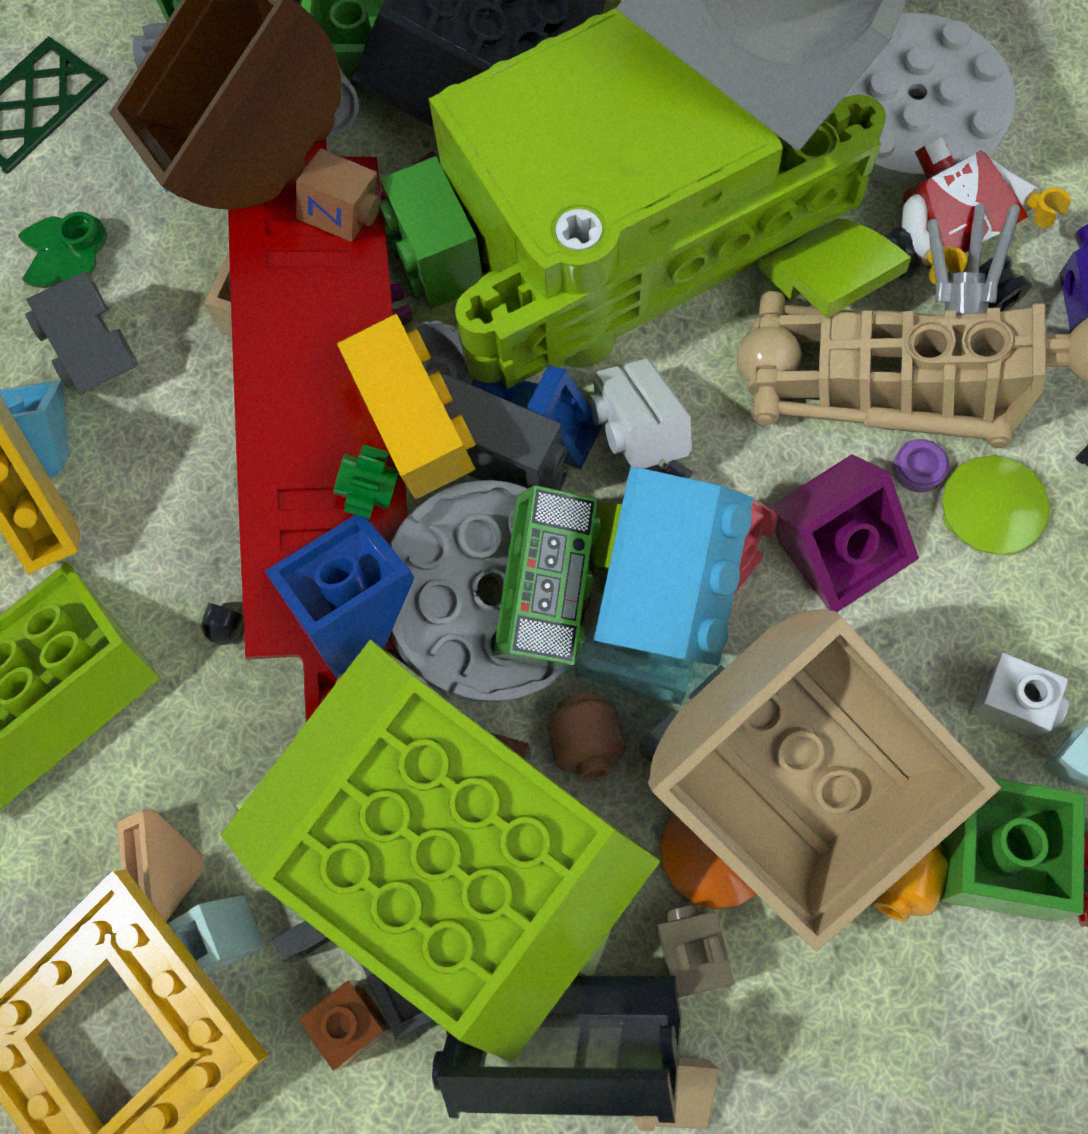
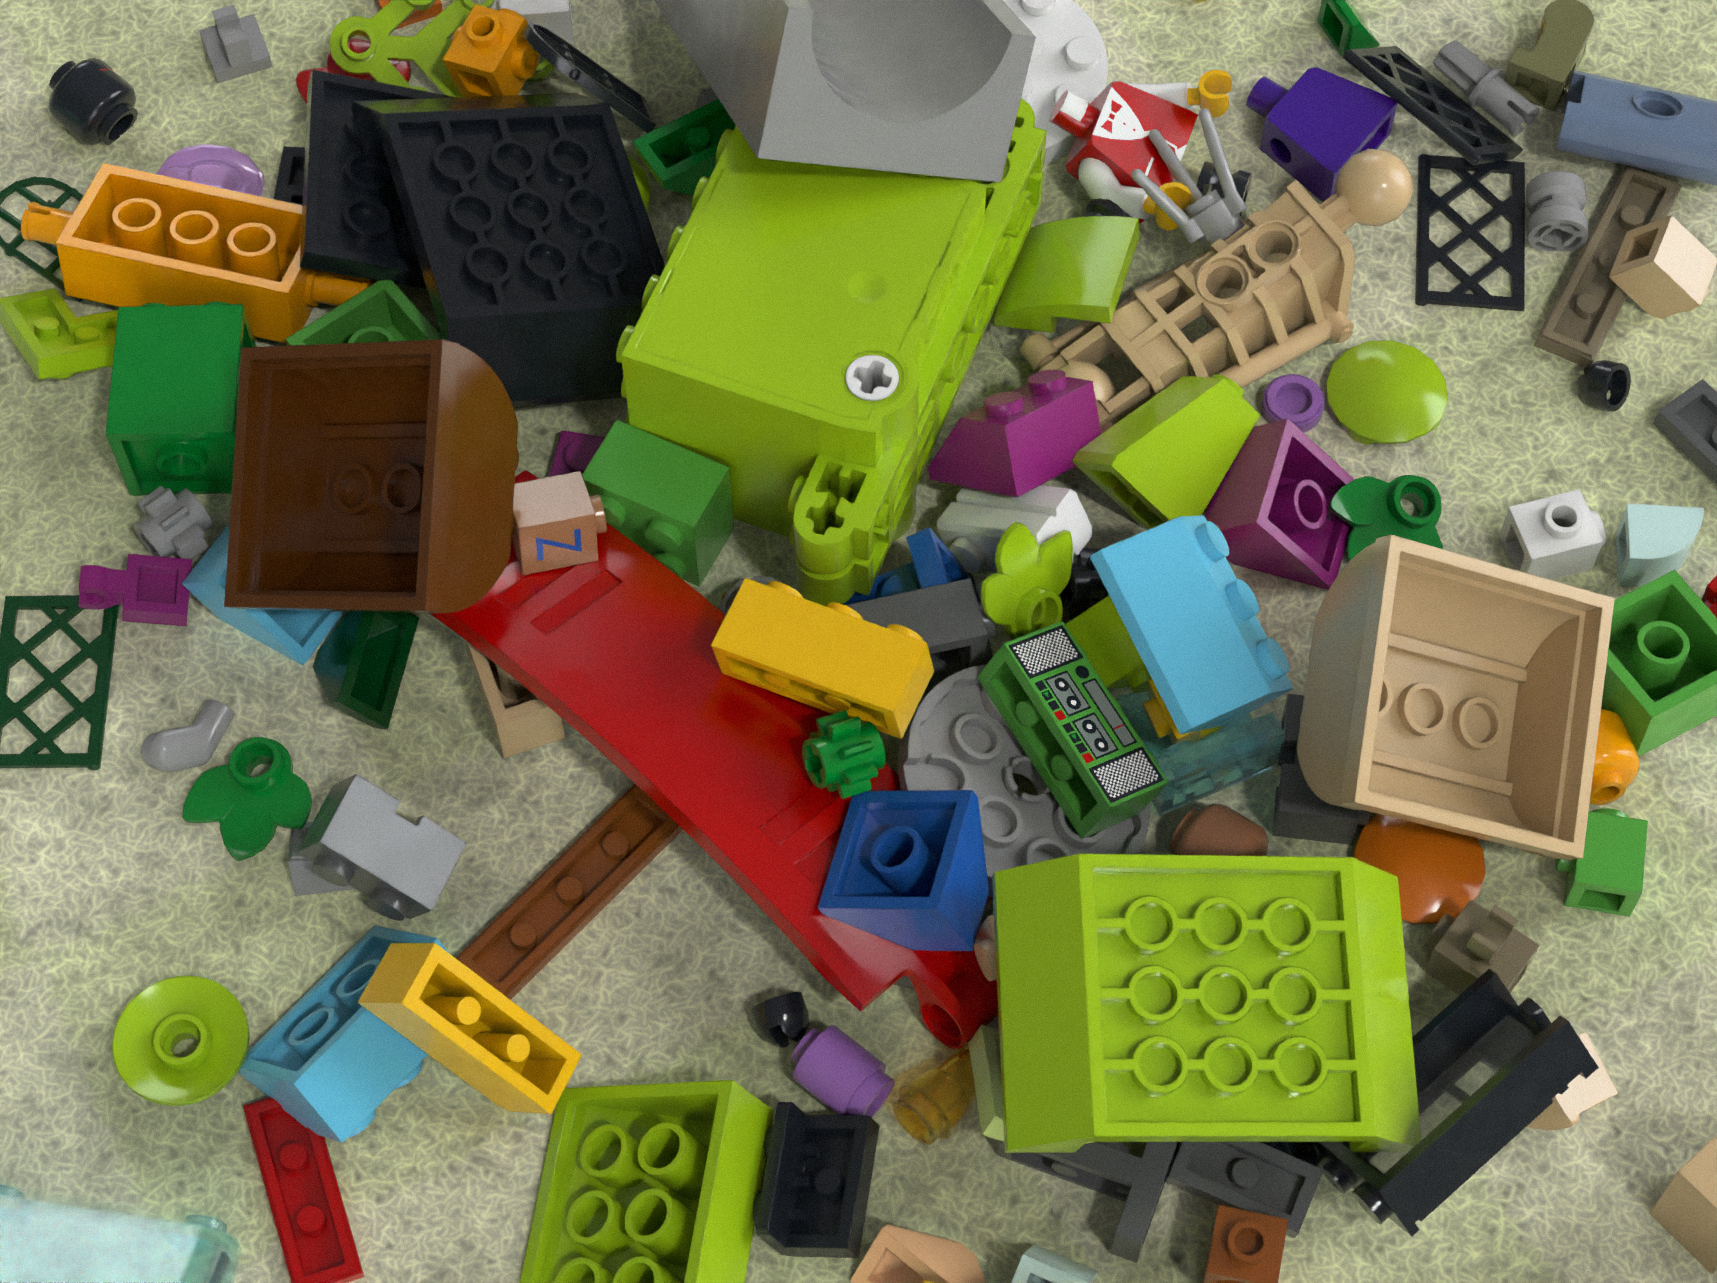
camera: 45 degrees left, 10 degrees down
(59, 194) = (188, 745): none -> light grey arm
(105, 77) = (147, 589): none -> magenta plate
(141, 744) = (816, 1183): none -> black bracket
(156, 448) = (570, 893): none -> dark orange tile
(185, 227) = (365, 663): none -> dark green slope
(221, 687) = (841, 1072): none -> medium lavender brick
(258, 750) = (937, 1099): none -> clear yellow cone
(600, 454) = (1027, 581): none -> lime plate
(696, 354) = (1020, 436): none -> magenta slope
(795, 436) = (1171, 449): none -> lime slope
(848, 961) = (1611, 867): none -> bright green brick
(904, 602) = (1376, 511): none -> green plate

